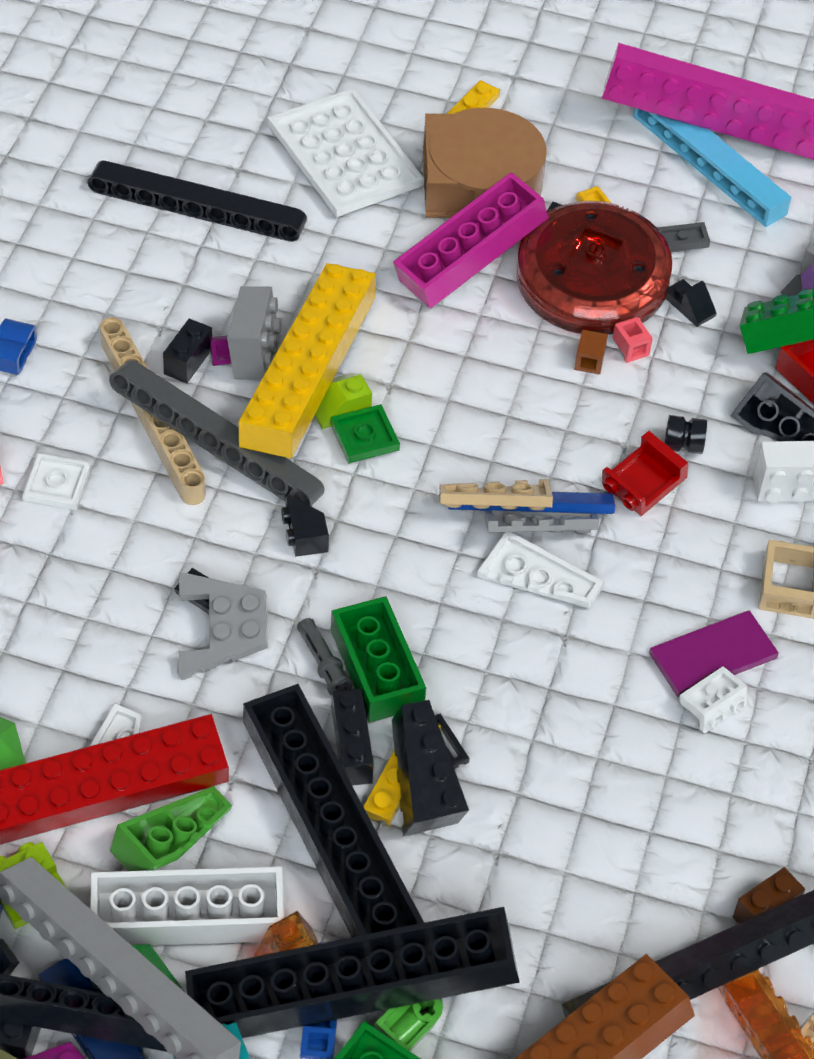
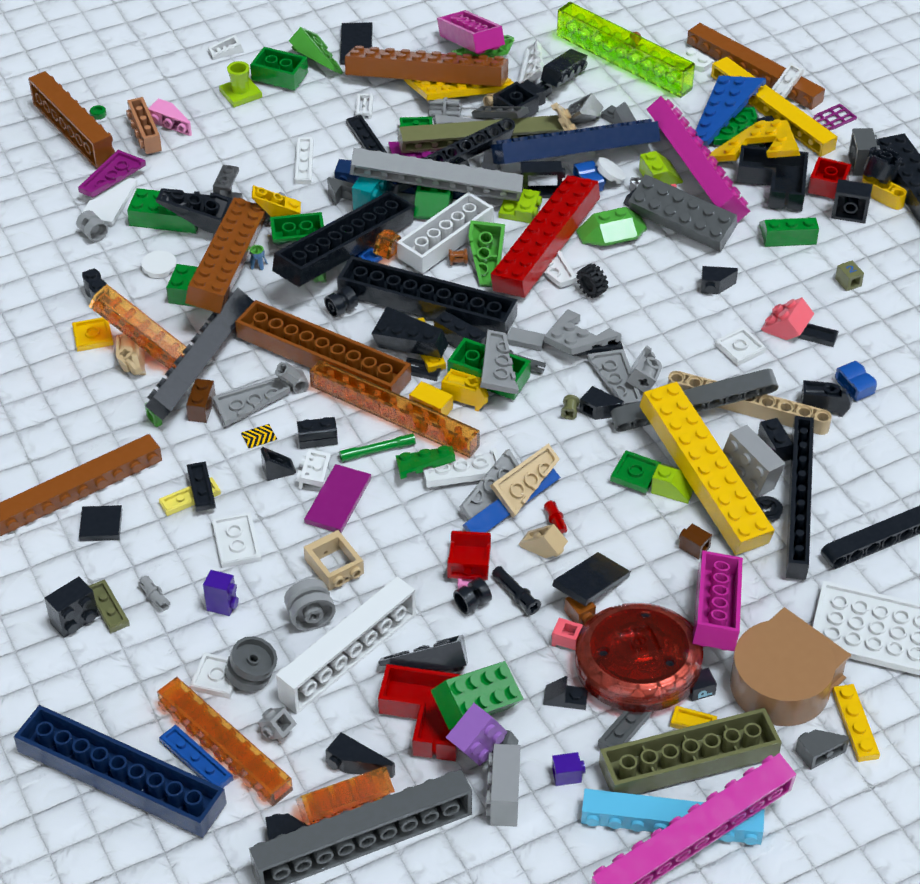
camera: 140 degrees right, 5 degrees down
(74, 353) = (826, 396): none -> black piece
(110, 673) = (592, 280): none -> black tyre
(208, 860) = (458, 256): none -> dark orange bush
(210, 518) = (645, 370): none -> light grey piece
(241, 544) = (614, 371): none -> light grey wing
(269, 269) = (800, 498): none -> black brick
(270, 673) = (526, 338): none -> light grey tile
(295, 303) = (776, 507): none -> black gear
(339, 551) = (569, 410): none -> olive bush
(386, 621) = (497, 364): none -> light grey wing
(401, 326) = (695, 540): none -> reddish brown brick
(433, 904) = (342, 301): none -> black wheel
(434, 661) = (465, 388): none -> yellow piece
(485, 680) = (432, 398): none -> yellow brick
(505, 452) = (555, 516): none -> red axle
(528, 107) = (820, 747): none -> dark grey slope
(547, 701) = (395, 408): none -> clear orange brick
(549, 851) = (309, 343): none -> dark orange brick
(551, 435) = (544, 541): none -> tan slope
(553, 357) = (591, 578): none -> black tile
(578, 613) = (417, 461): none -> green wing
(578, 666) = (356, 452): none -> green piece
(624, 835) = (292, 376): none -> light grey piece
(631, 406) = (521, 595): none -> black pin
(644, 175) = (689, 753): none -> olive brick
(665, 741) = (317, 432): none -> black brick
(712, 867) = (246, 400): none -> light grey wing
(729, 812) = (259, 436): none -> sticker
(750, 740) = (276, 464): none -> black slope
(760, 244) = (567, 769): none -> dark purple brick

